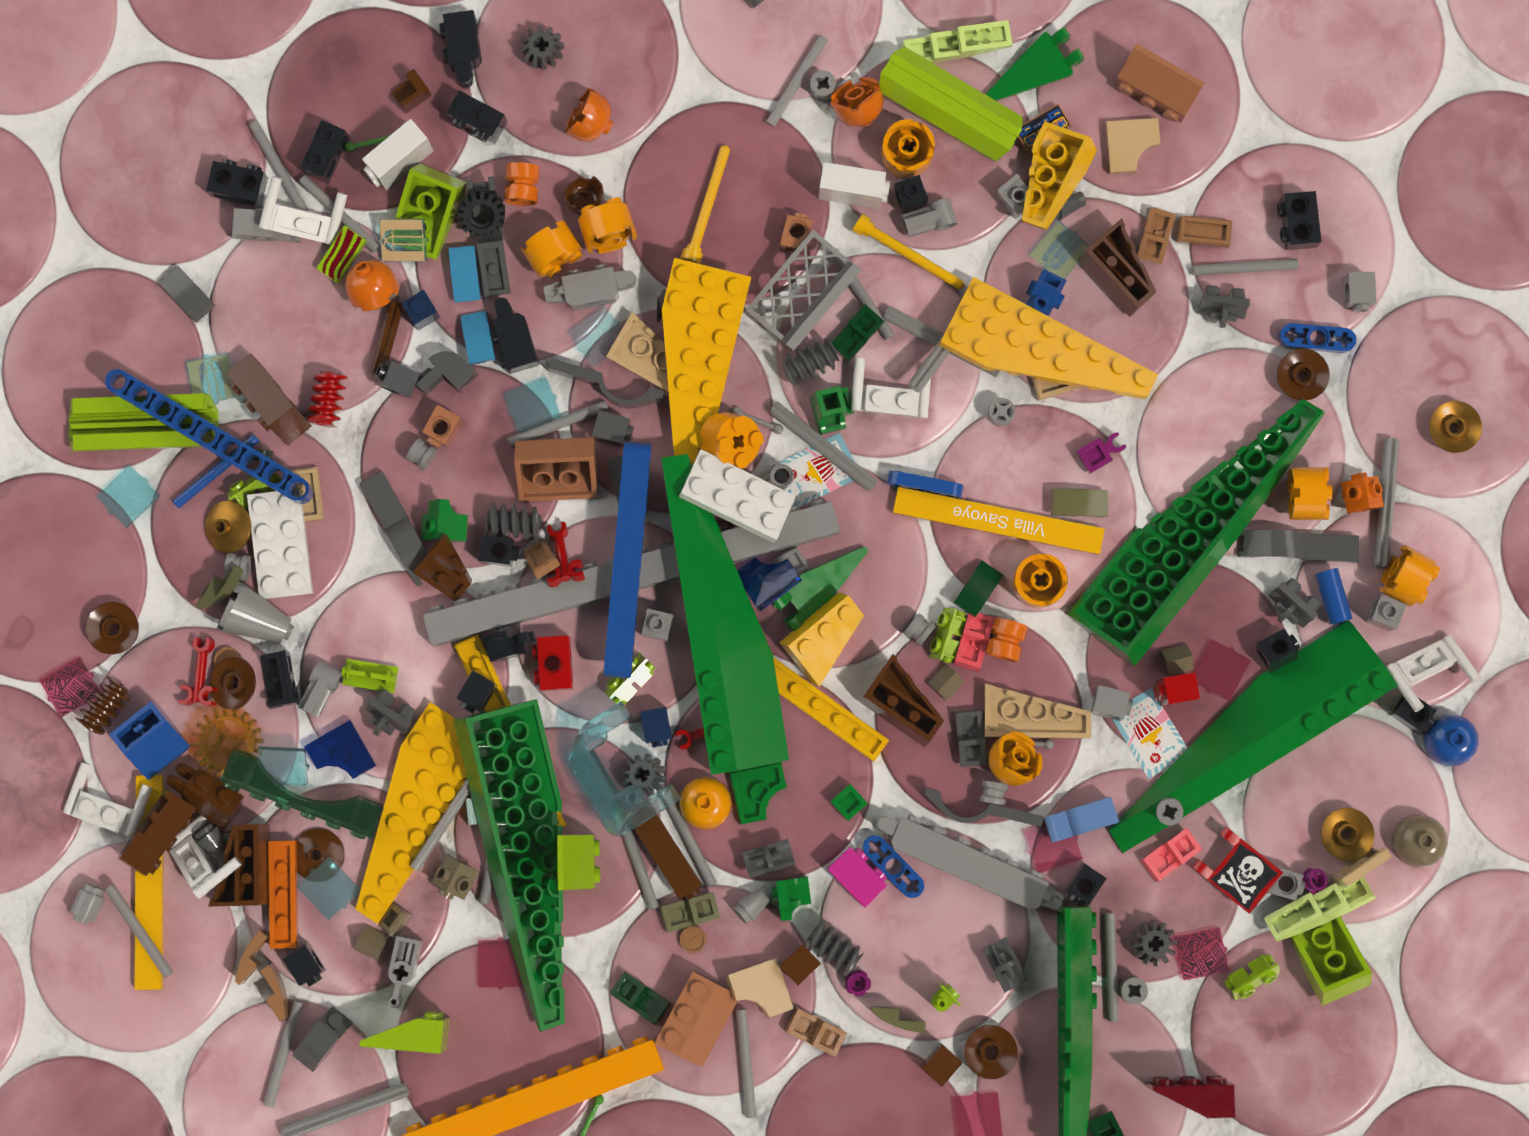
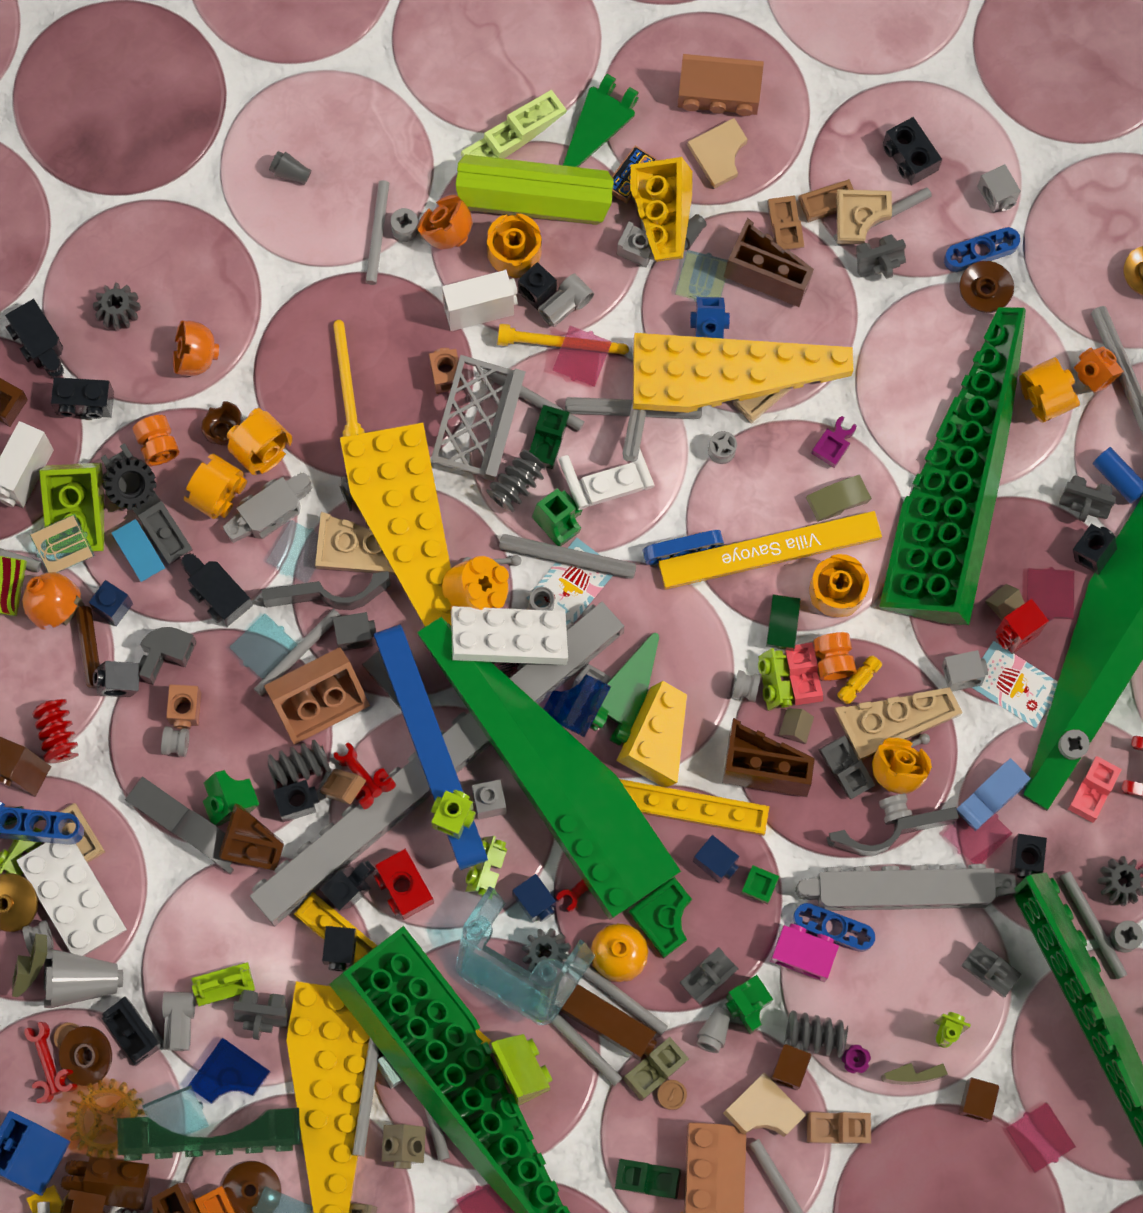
camera: 30 degrees left, 10 degrees down
(478, 338) = (180, 605): dark azure slope -> none
(605, 629) = (452, 823): none -> lime brick
(823, 765) = (717, 859): none -> dark blue brick
(920, 275) = (582, 356): none -> clear pink piece
(990, 1066) = (1031, 1053): reddish brown dish -> none
(1019, 668) = (859, 680): none -> yellow axle
(1225, 255) = (859, 212): none -> tan tile
(1300, 545) = (1065, 442): dark grey piece -> none

